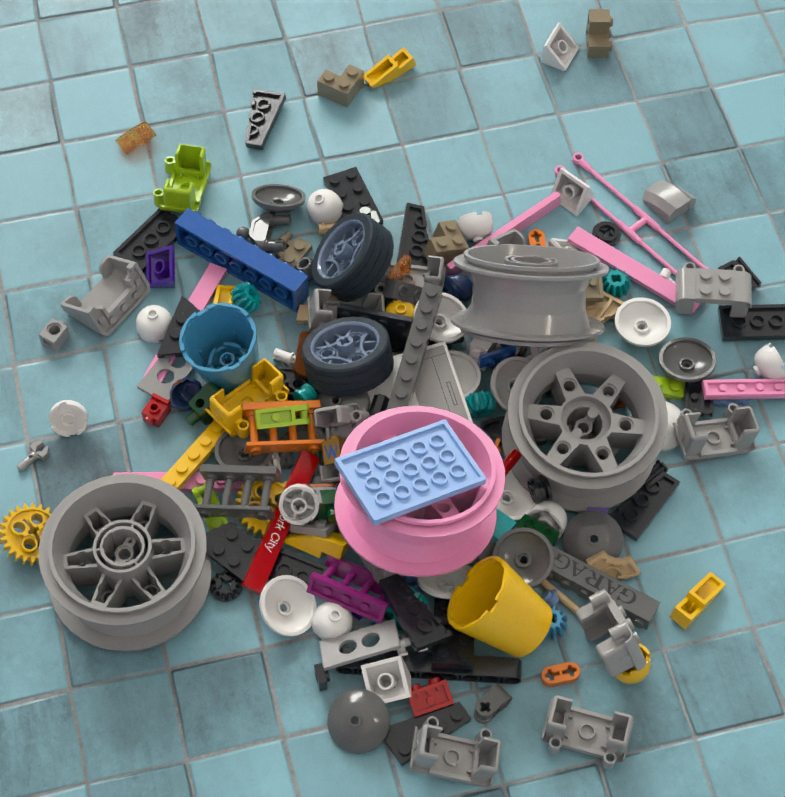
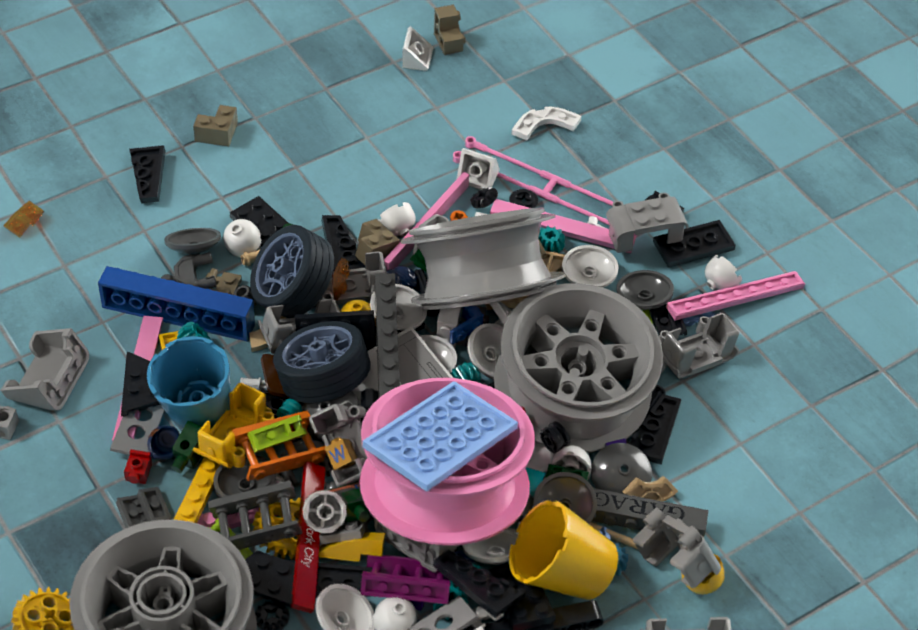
camera: 20 degrees left, 10 degrees down
(34, 447) = (21, 544): light grey bar -> none
(68, 418) = (48, 496): white tile -> none
(148, 453) = (143, 507): none -> dark grey slope
(153, 234) = (74, 306): black plate -> none
(153, 323) = (105, 386): white cylinder -> none
(161, 267) = (96, 330): dark purple slope -> none
(187, 182) = (91, 244): lime container -> none
(389, 68) = (259, 102): yellow slope -> none
(401, 290) = (351, 290): dark grey brick -> none
(561, 678) = (636, 603): orange beam -> none
(574, 220) = (484, 197): none -> black gear
(664, 149) = (549, 115): none -> white plate
(668, 200) = (569, 158): light grey slope -> none
(697, 600) = (740, 501): yellow slope -> none

